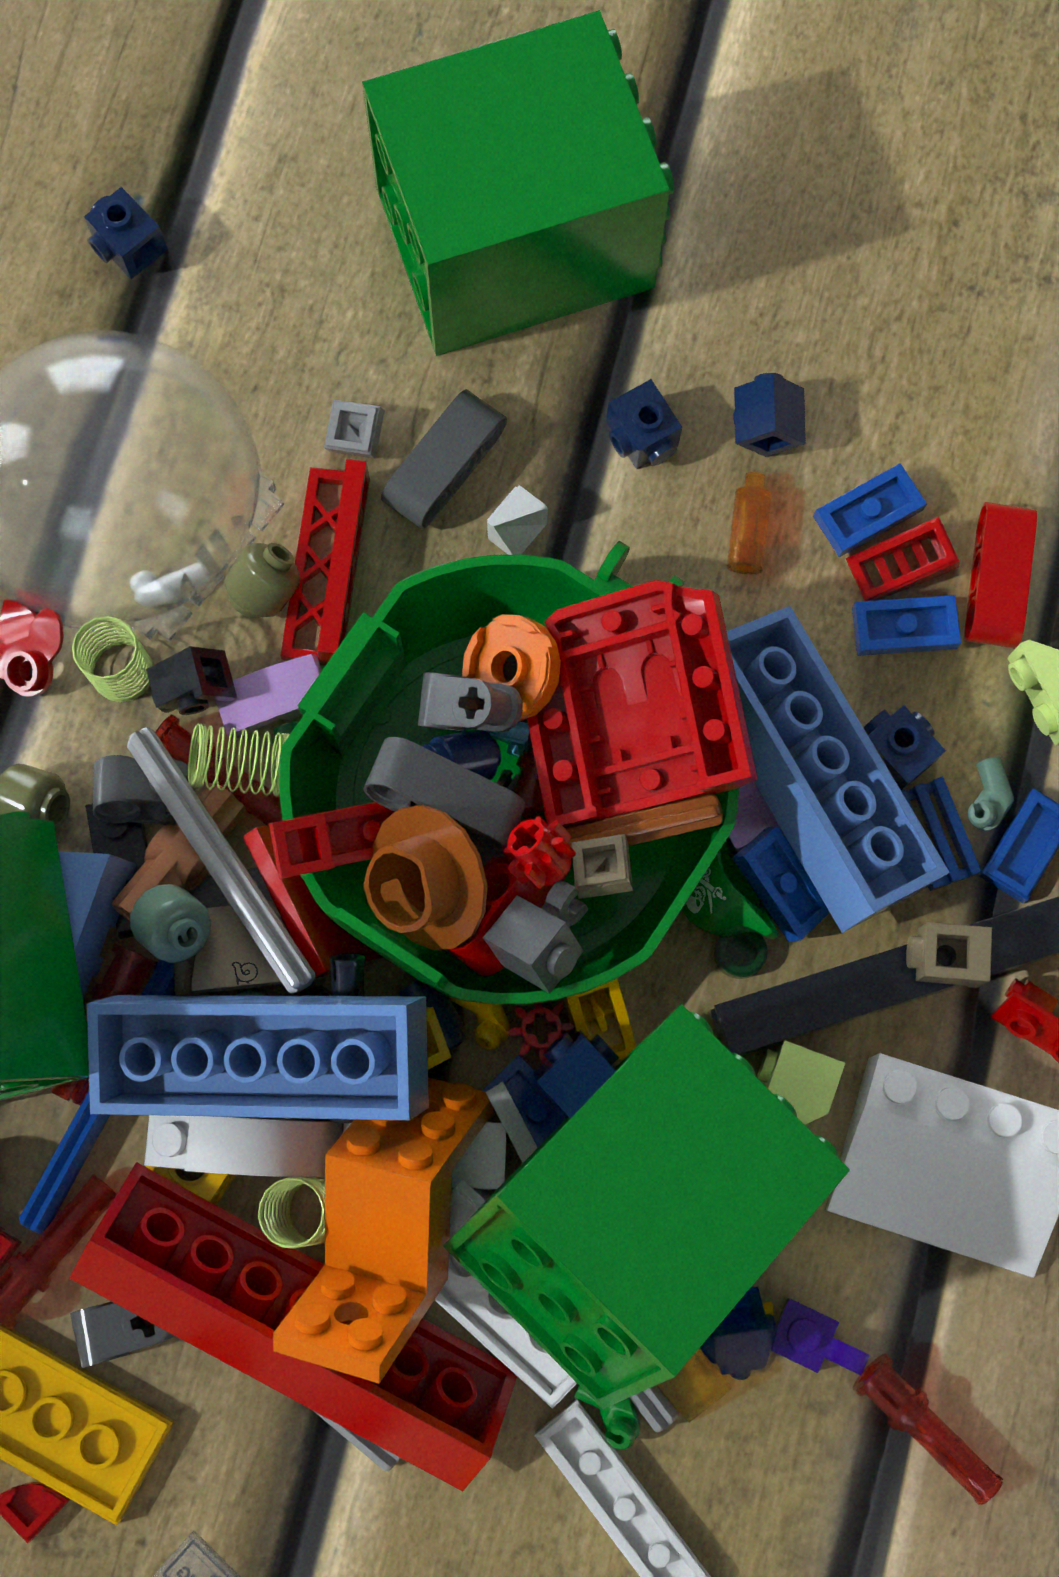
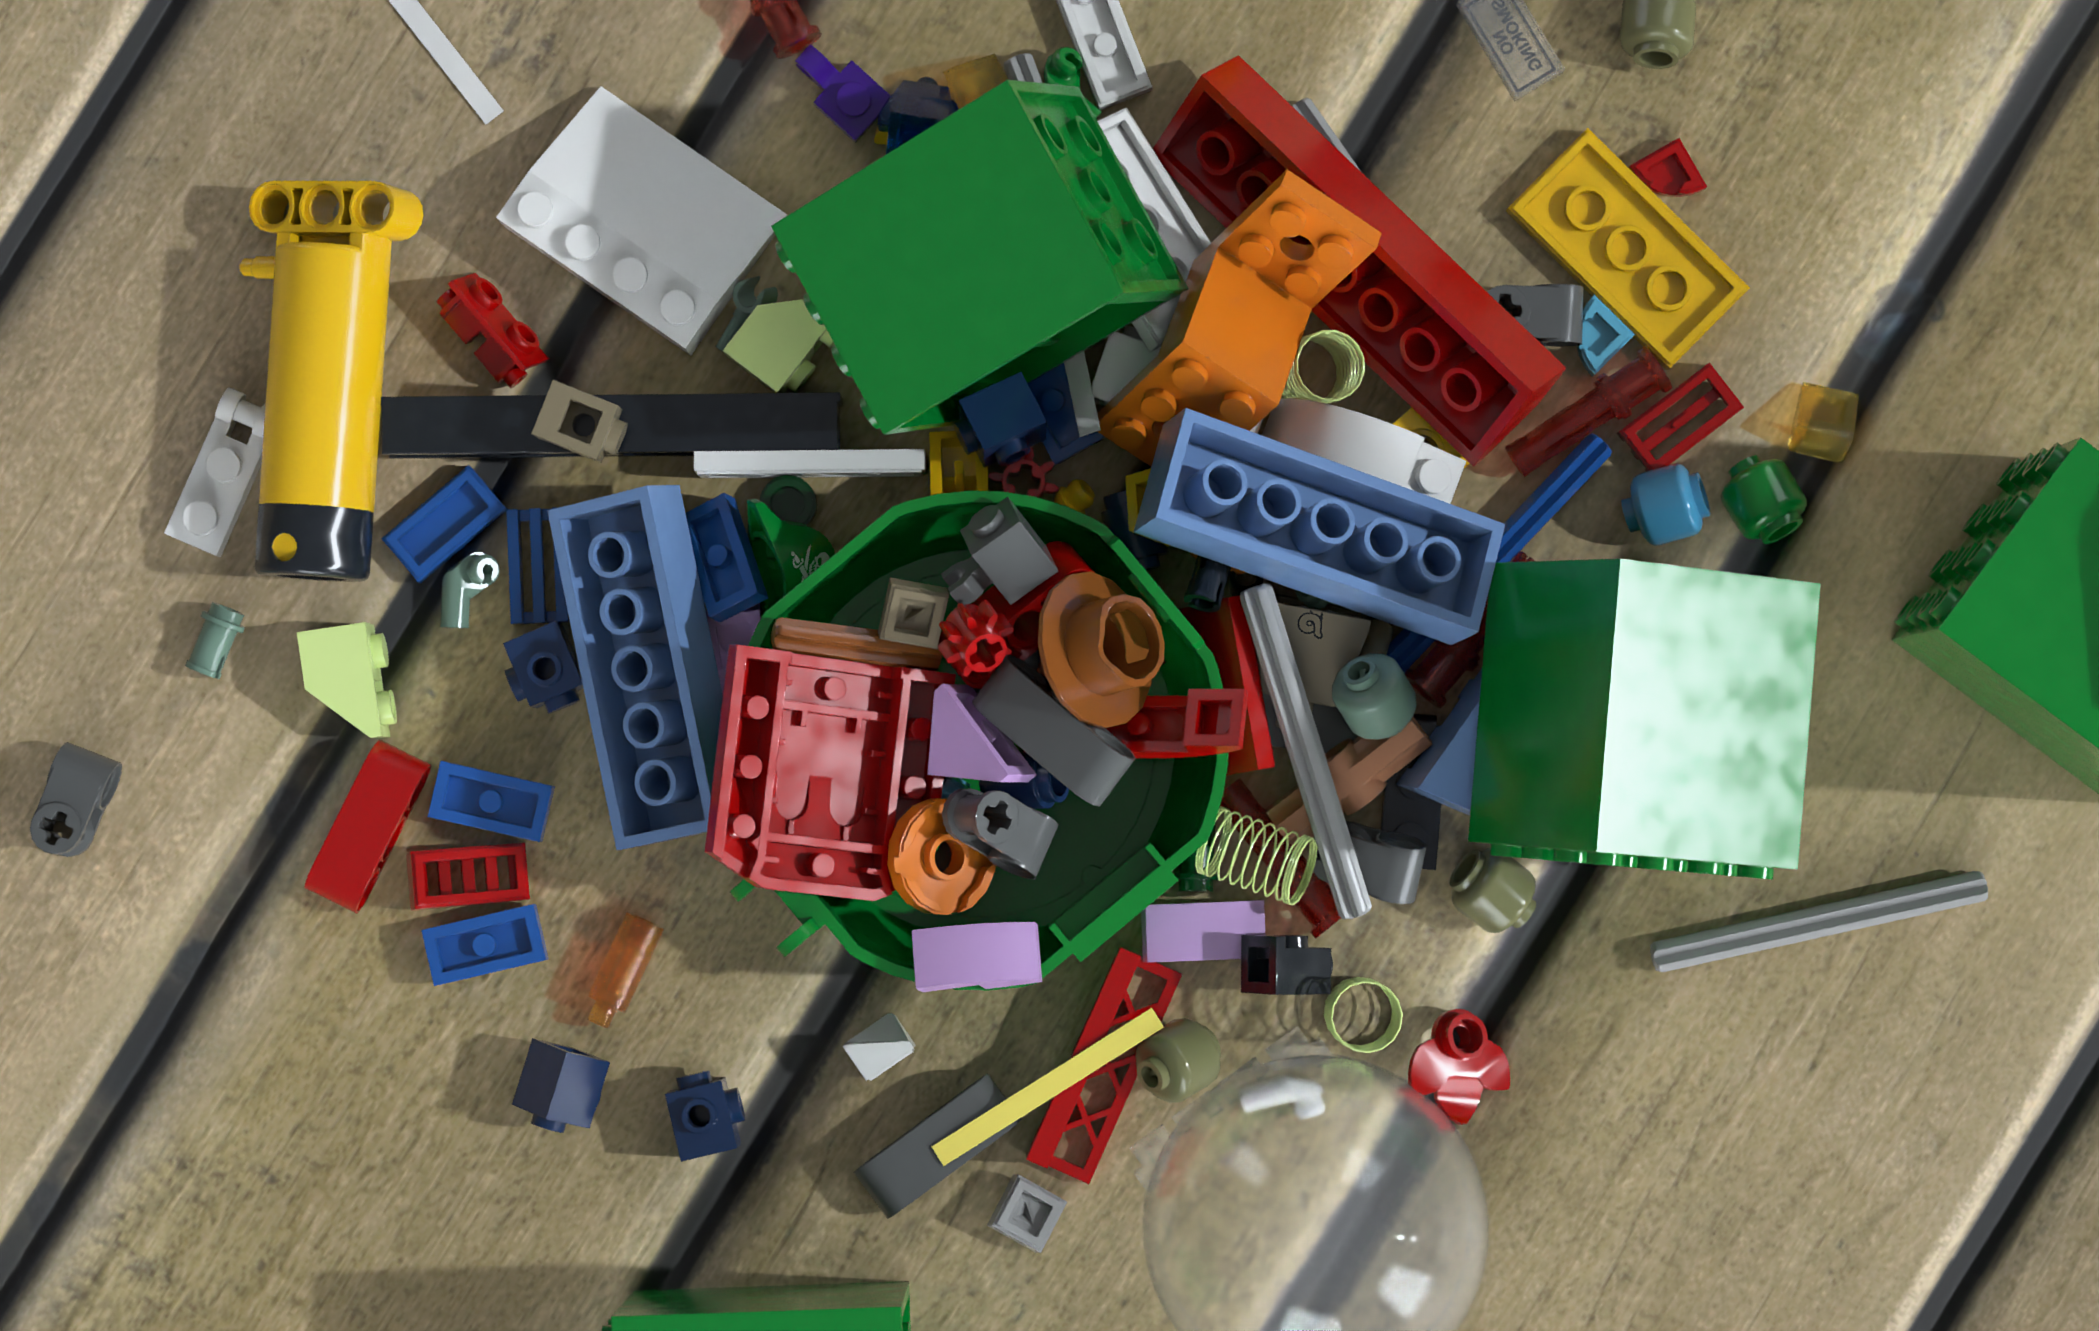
camera: 160 degrees left, 10 degrees up
(53, 1327) = (1601, 335): none -> medium azure tile
(364, 524) = (1047, 1086): none -> light yellow sticker
(454, 586) = (976, 955): none -> lavender slope
(517, 762) = (969, 744): none -> lavender slope
(705, 997) = (811, 463): none -> white tile
(838, 1118) = (745, 302): none -> sand green hand

